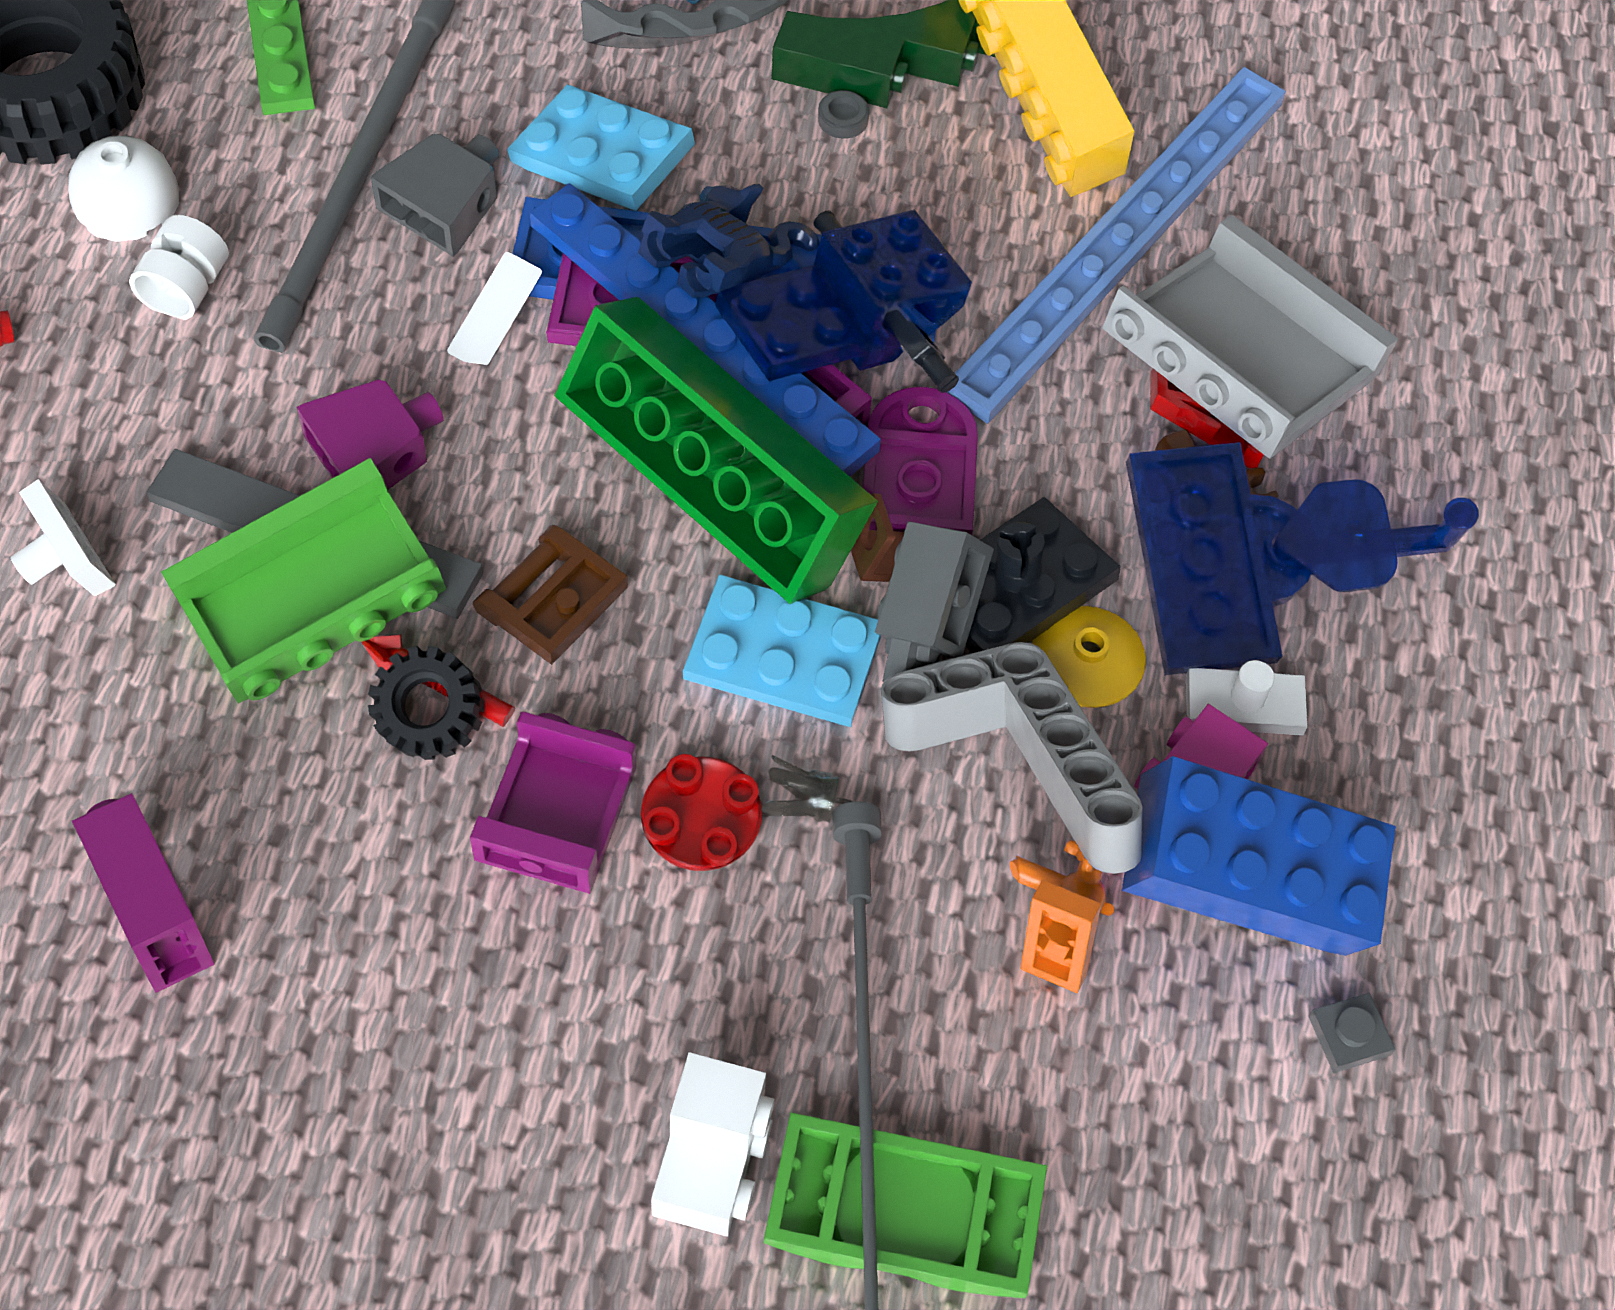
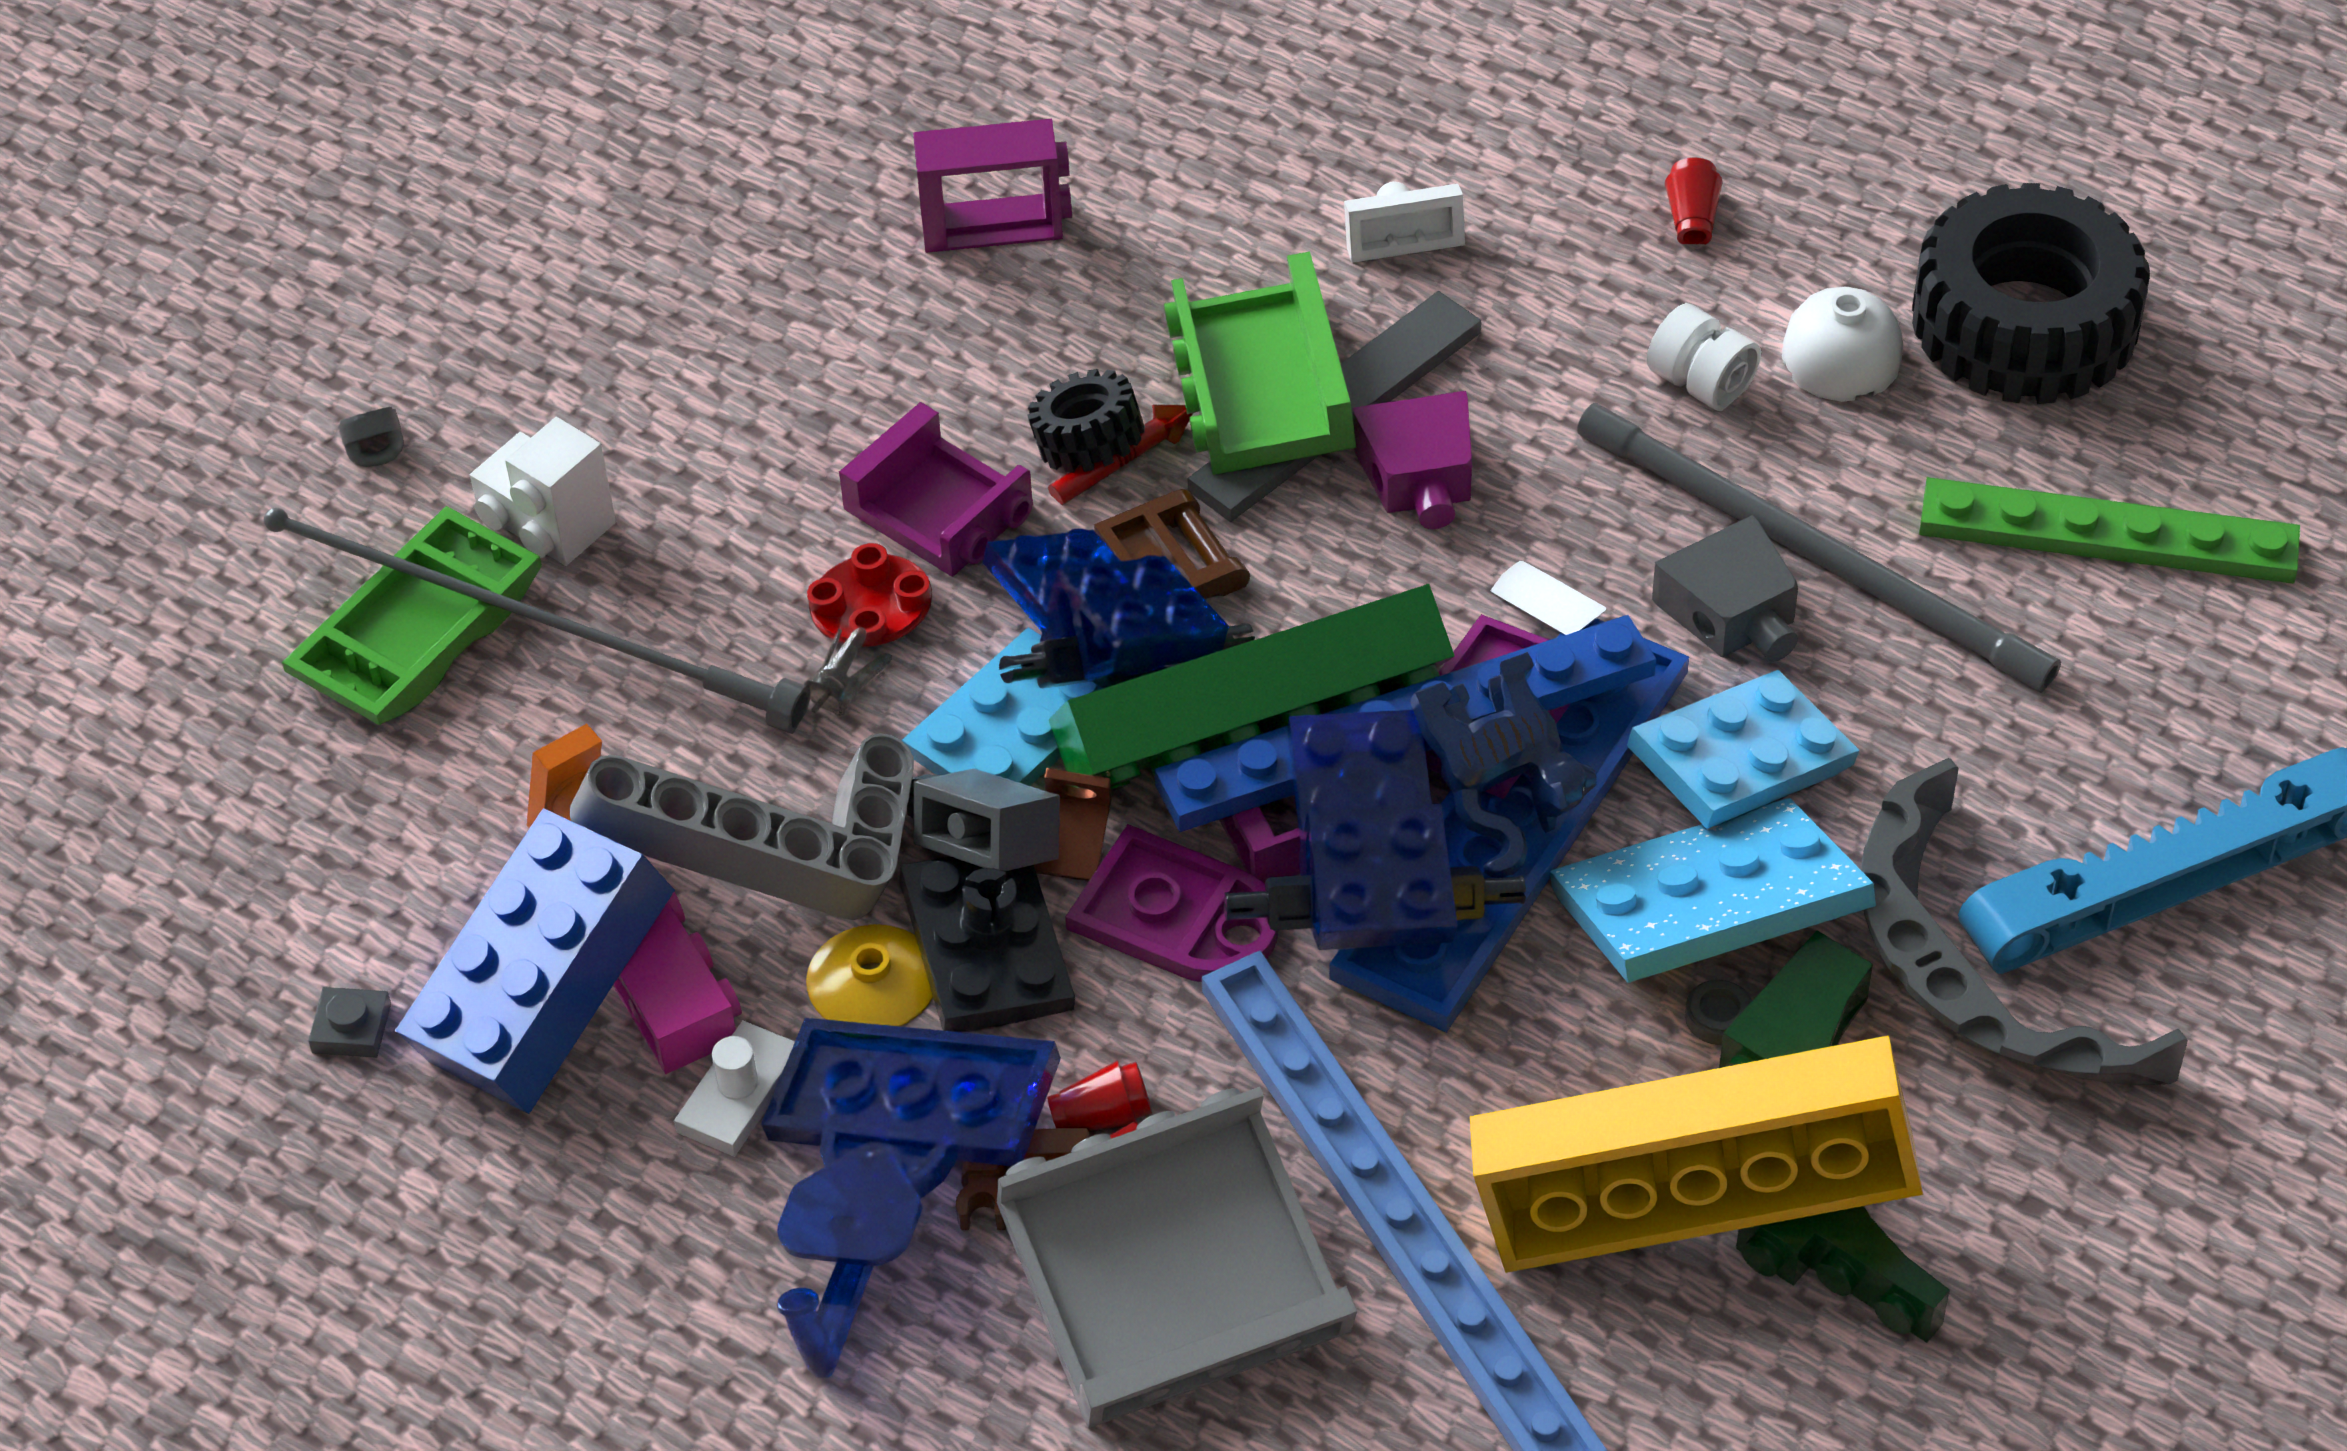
camera: 120 degrees right, 10 degrees down
(689, 568) = (1102, 614): none -> clear blue piece
(762, 118) = (1711, 889): none -> medium azure plate
(1119, 434) = (1102, 1100): none -> red cone

